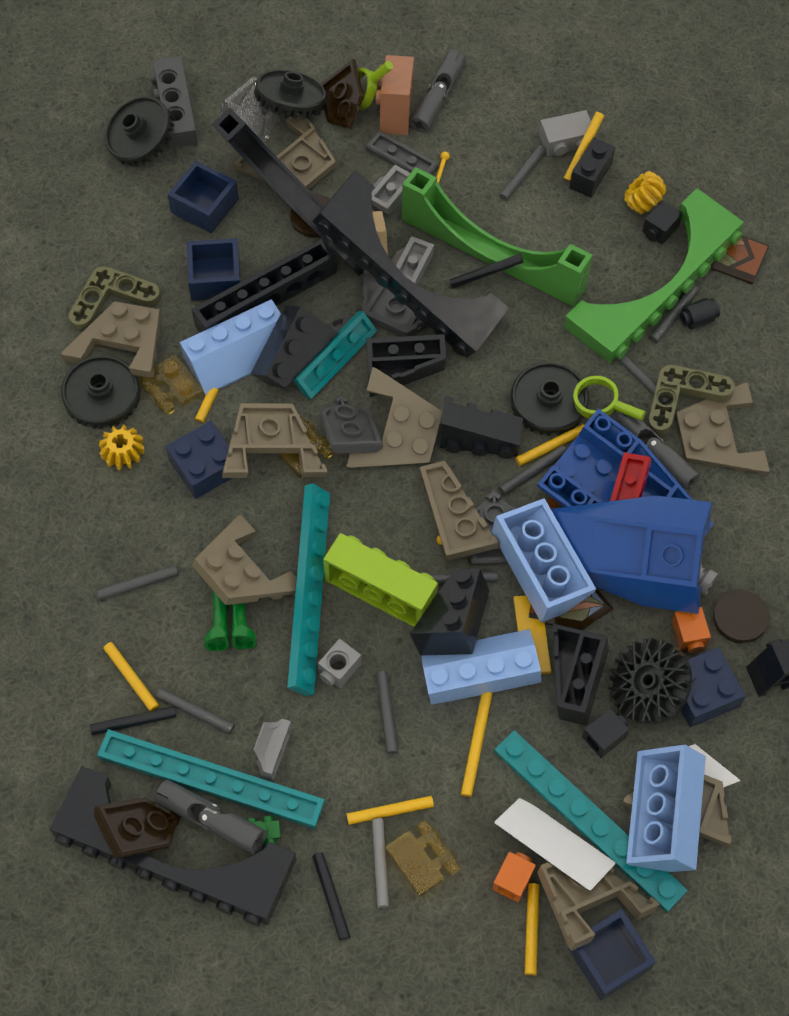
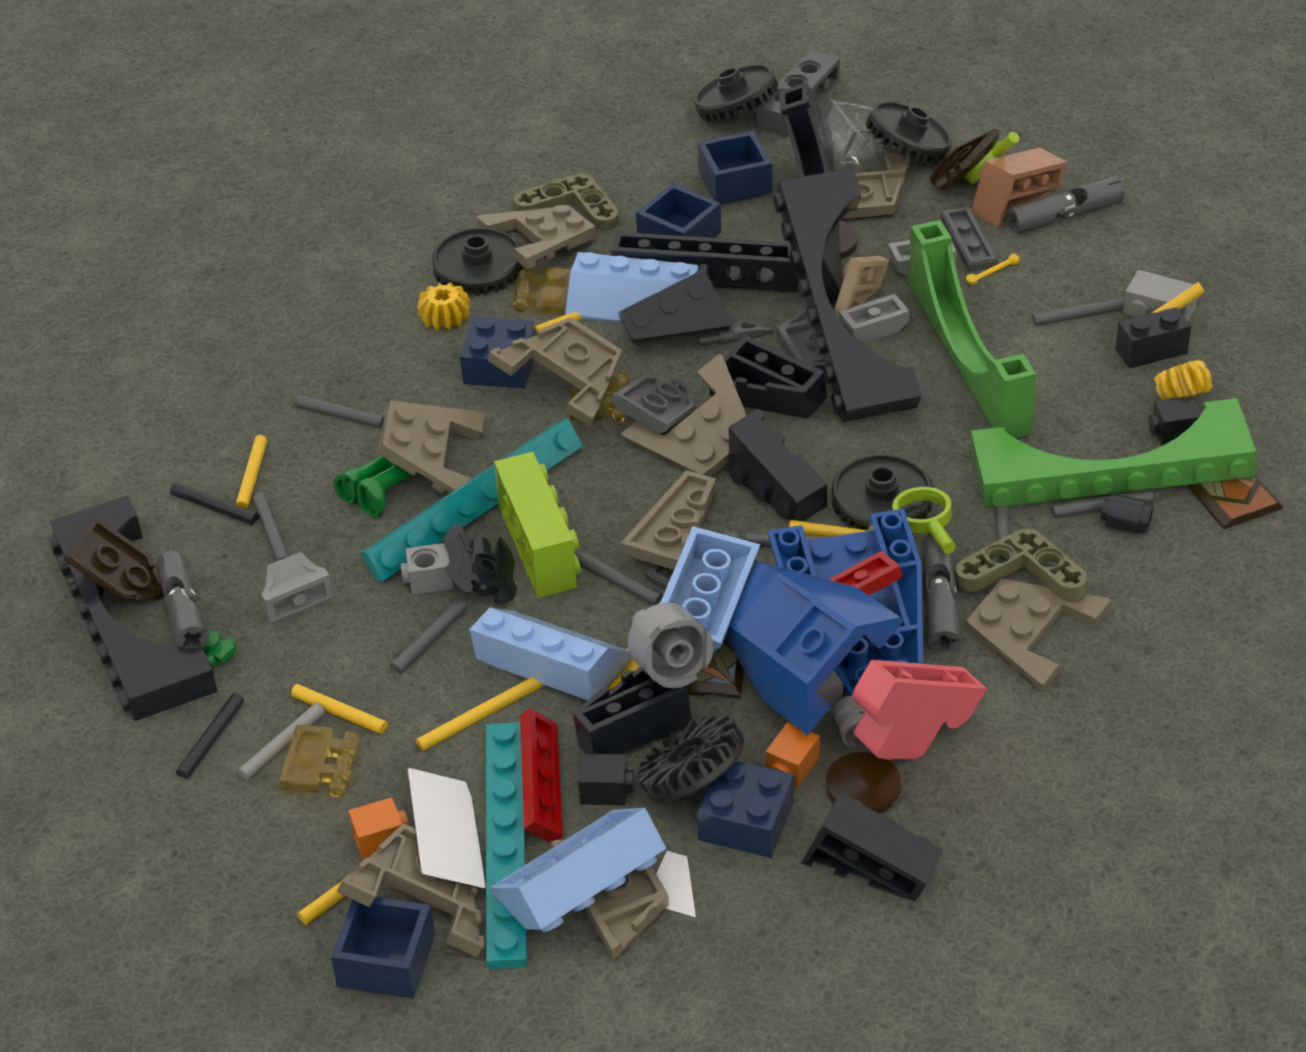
camera: 45 degrees right, 20 degrees down
(211, 779) = (222, 585): teal plate -> none
(335, 355) = (706, 344): teal plate -> none
(370, 636) = (477, 568): none -> black piece
(453, 616) = (571, 588): black wedge -> none
(486, 270) = (938, 358): black bar -> none
(566, 759) = (540, 776): none -> red plate
(581, 617) = (669, 644): none -> light grey brick
(743, 549) = (910, 704): none -> coral brick

